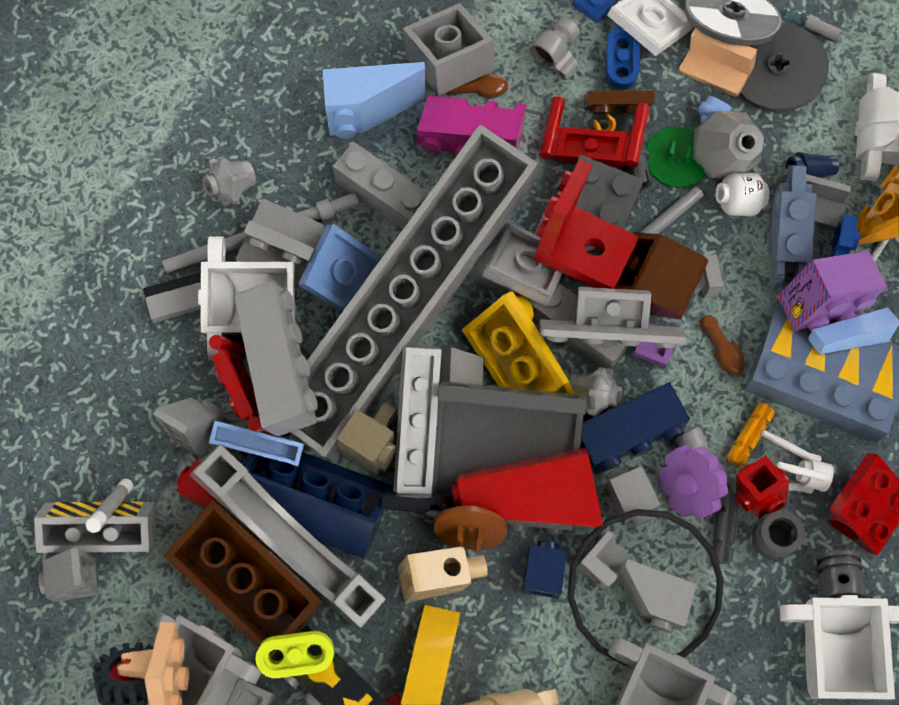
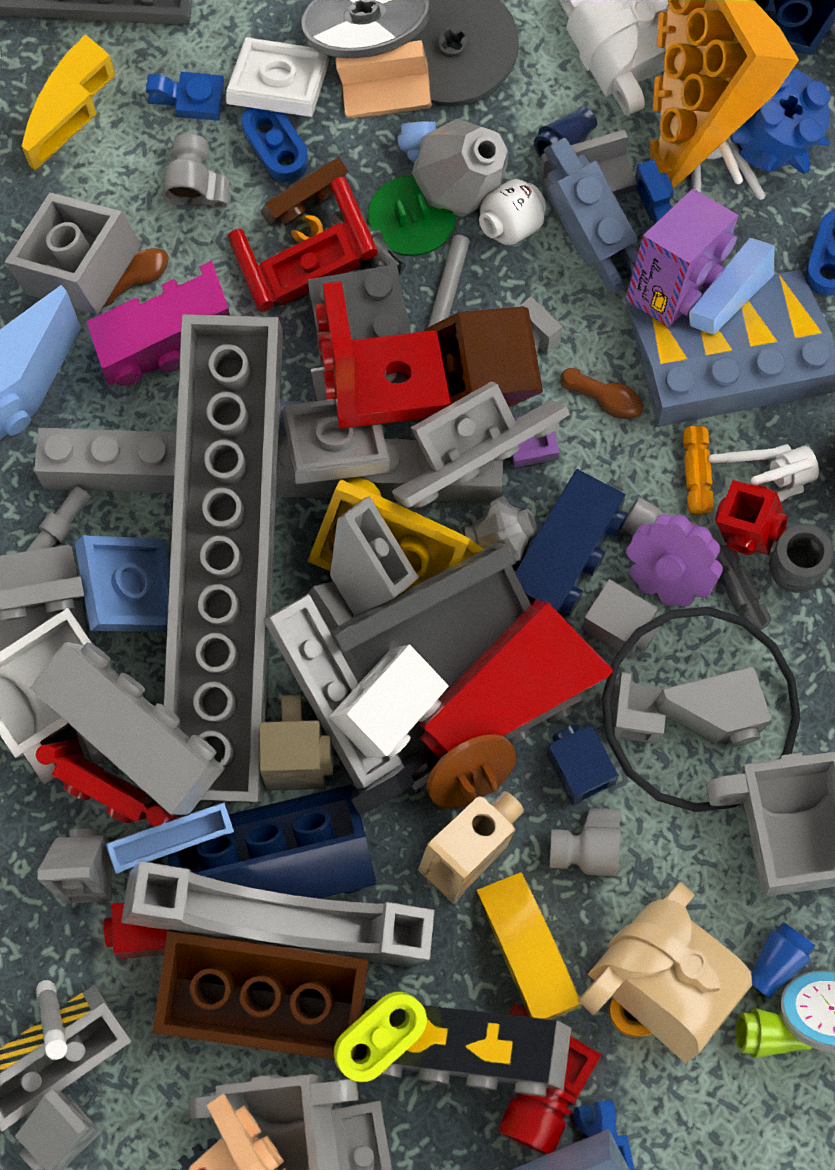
camera: 30 degrees left, 0 degrees up
(446, 451) = (390, 703): none -> white brick
(495, 351) = (368, 559): none -> light grey slope
(517, 629) = (594, 849): none -> light grey piece

